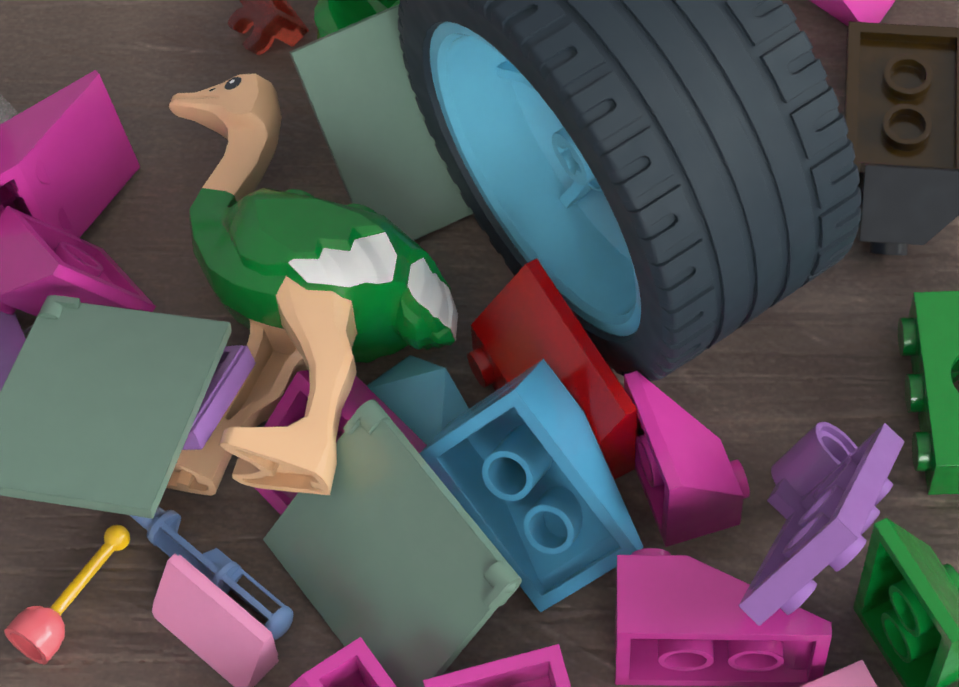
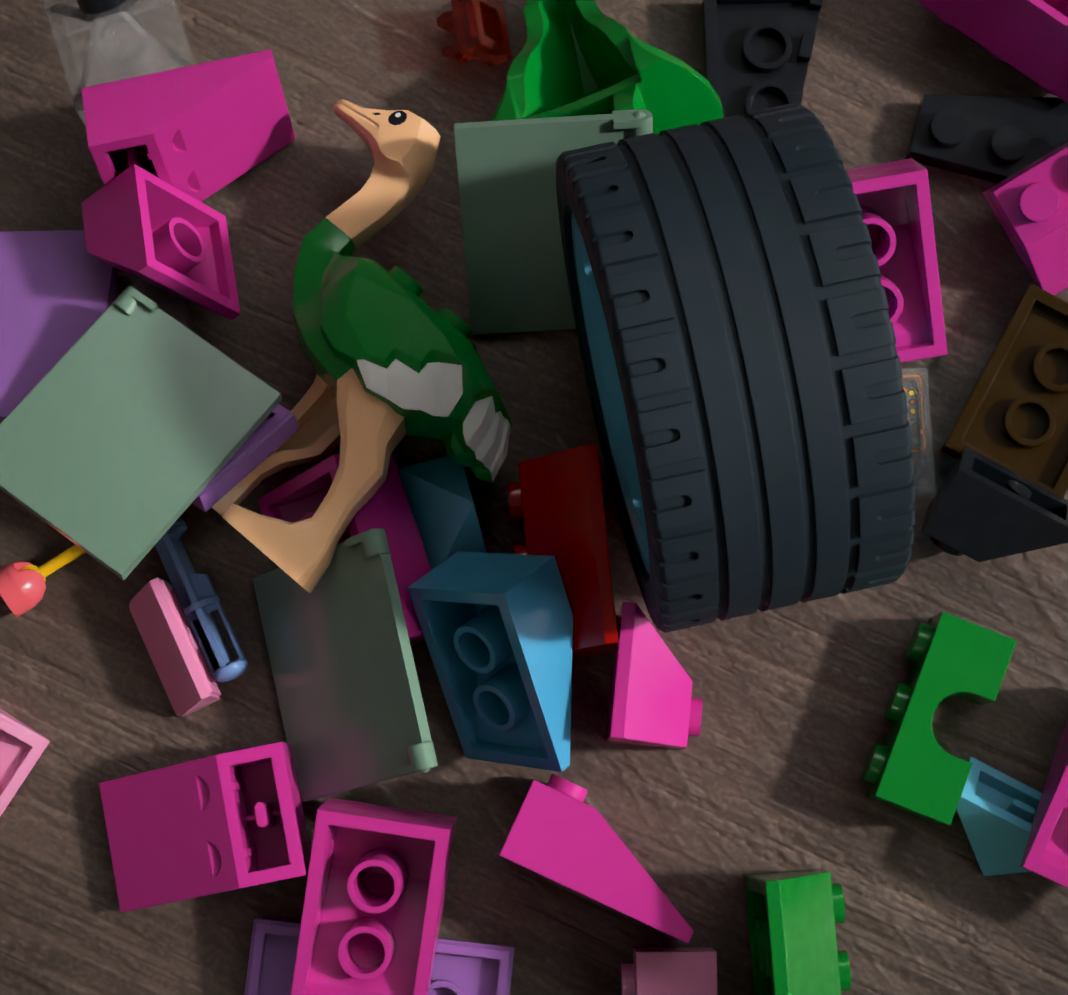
camera: 20 degrees right, 20 degrees up
(828, 501) = (742, 828): medium lavender hinge -> none

